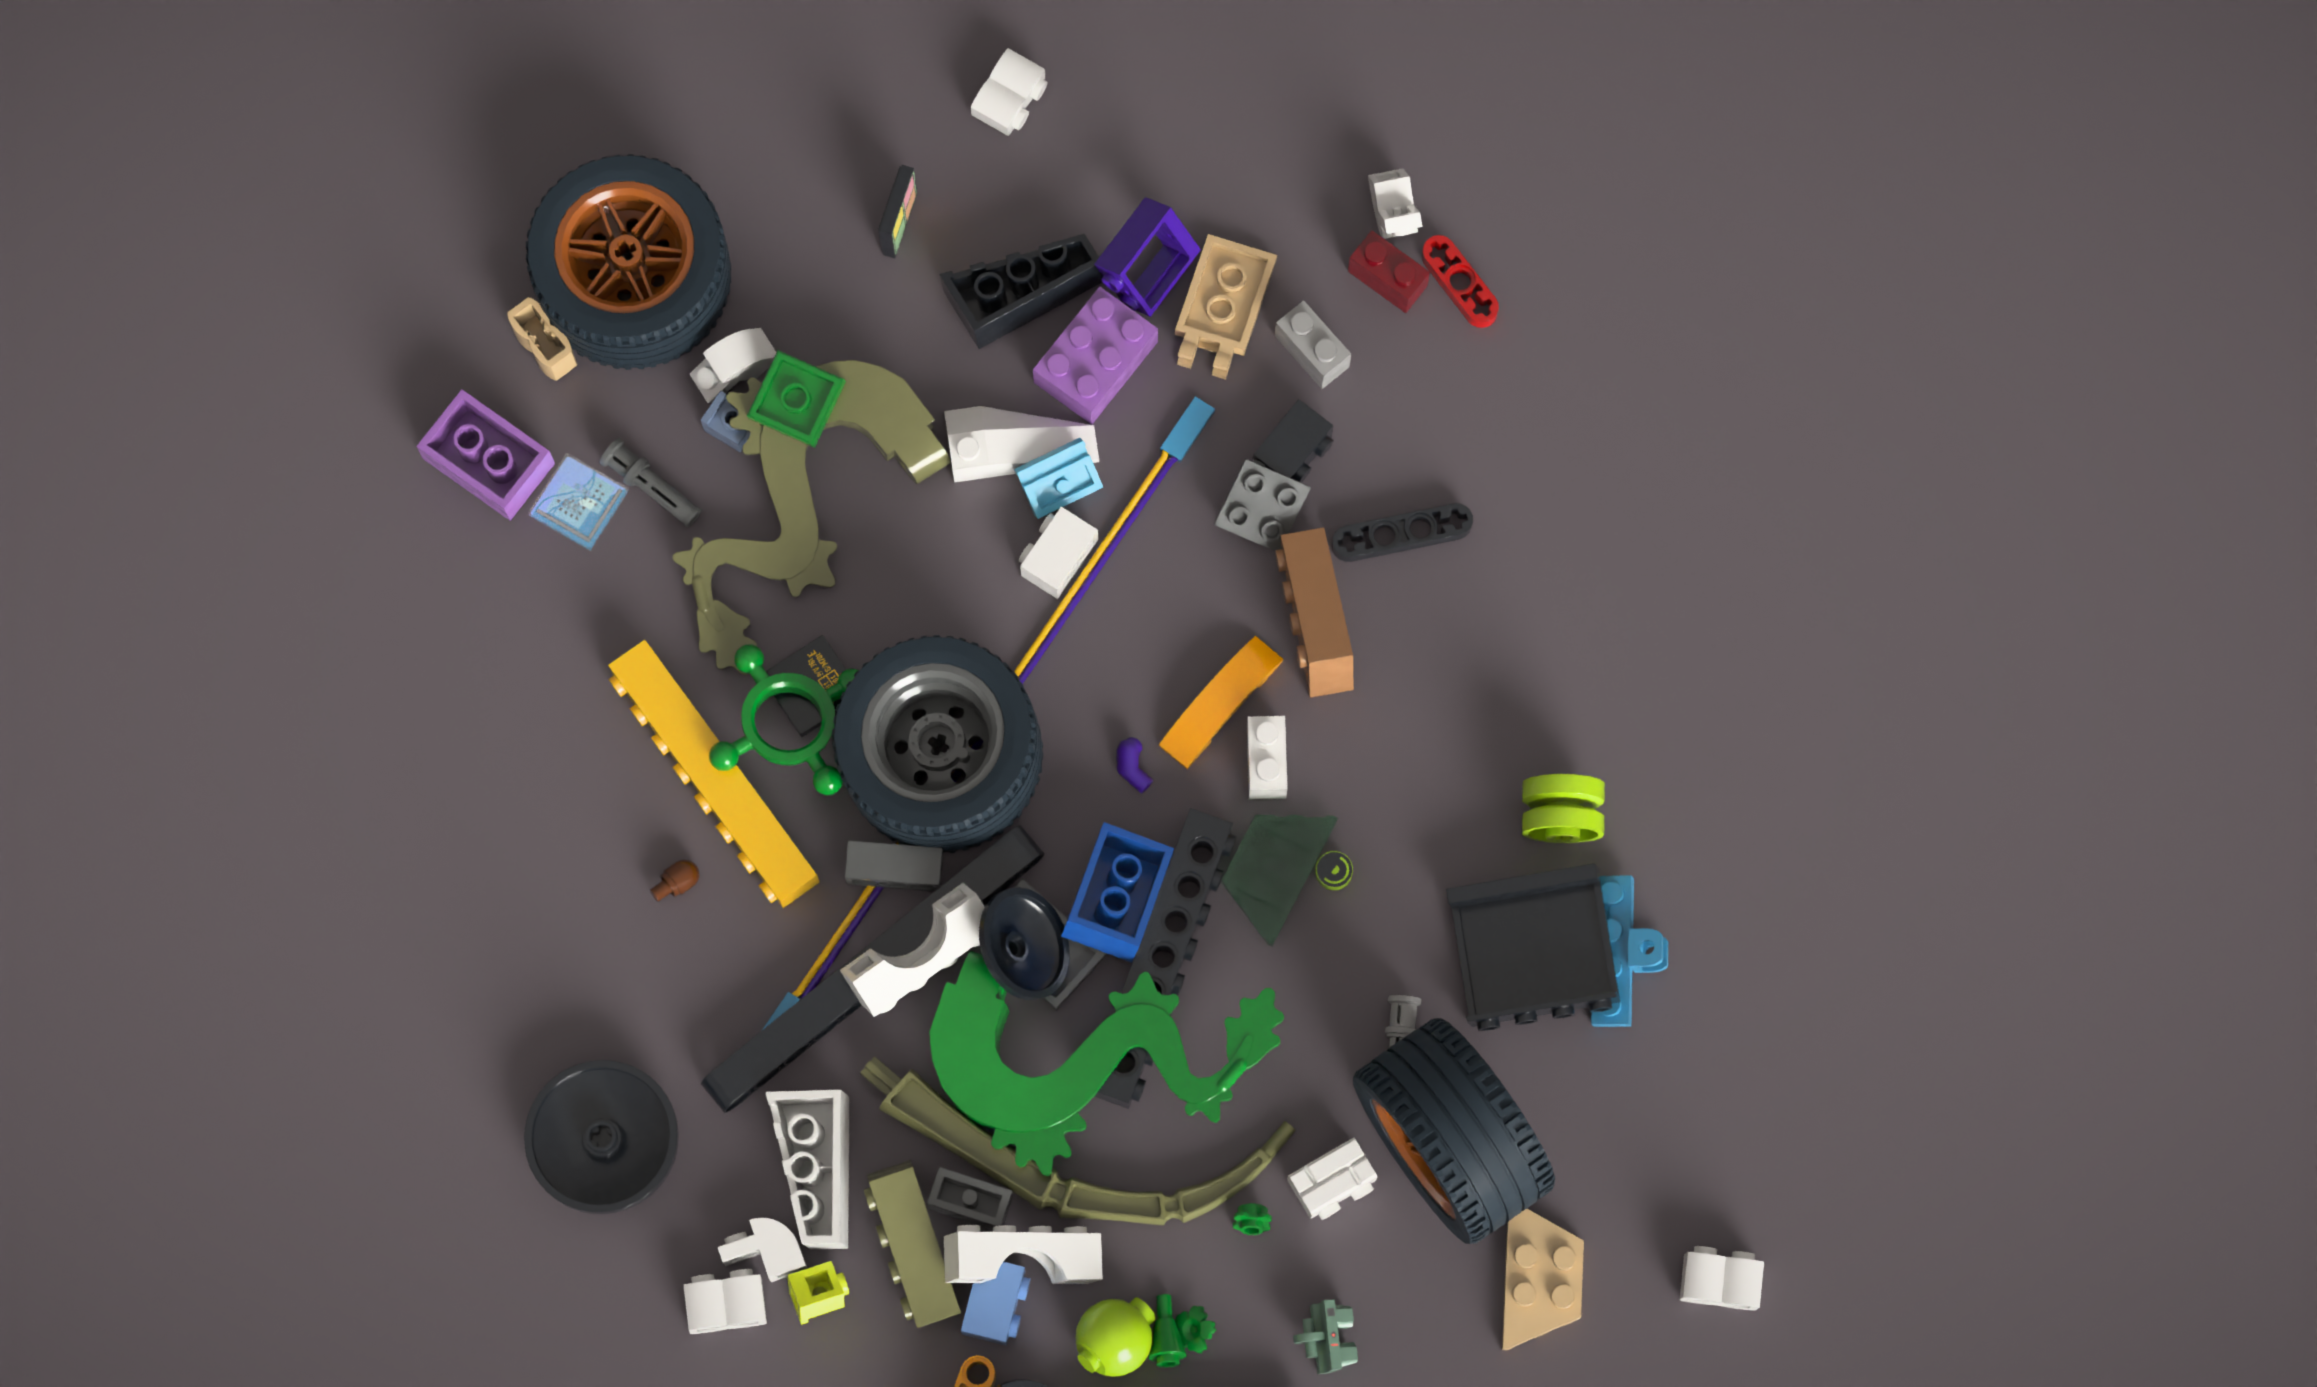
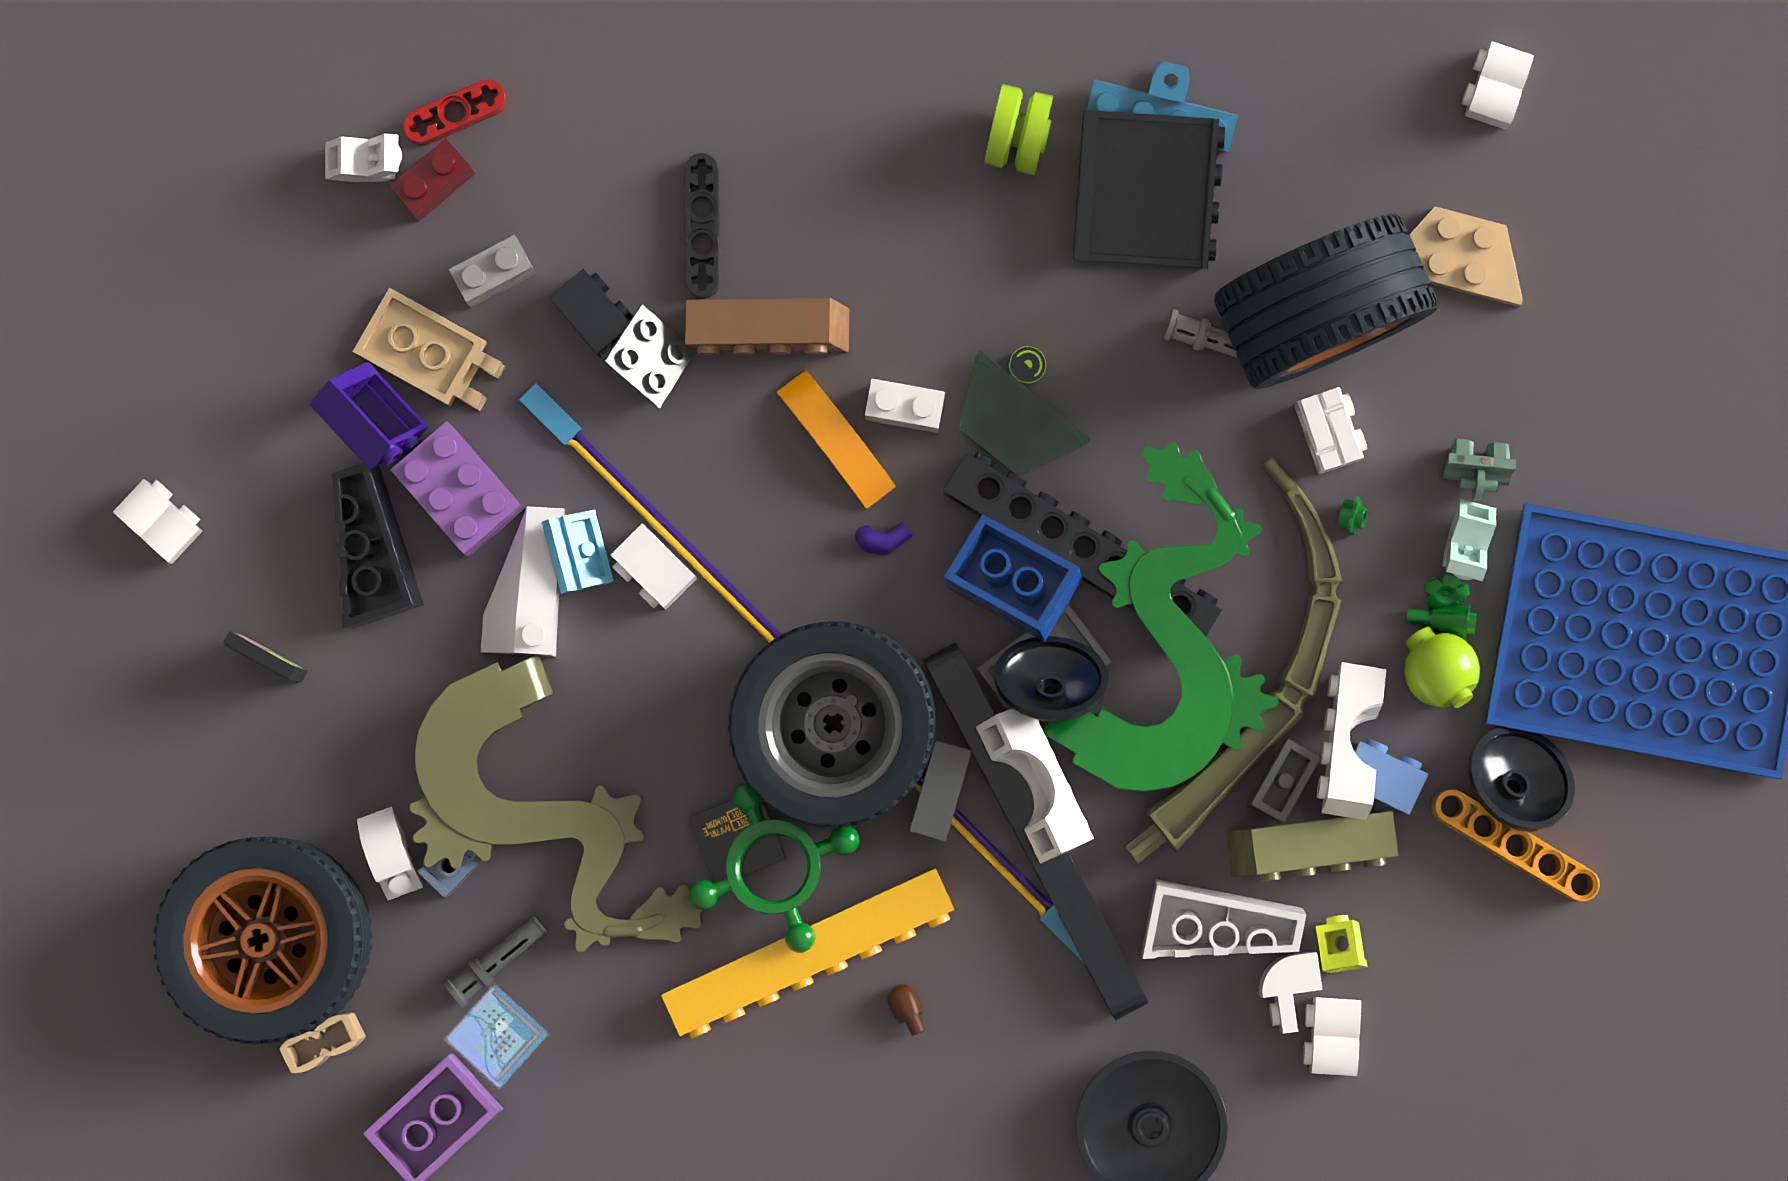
camera: 75 degrees left, 10 degrees up
(796, 398) = (446, 796): green tile -> none
(1250, 1340) = (1469, 540): none -> light aqua brick

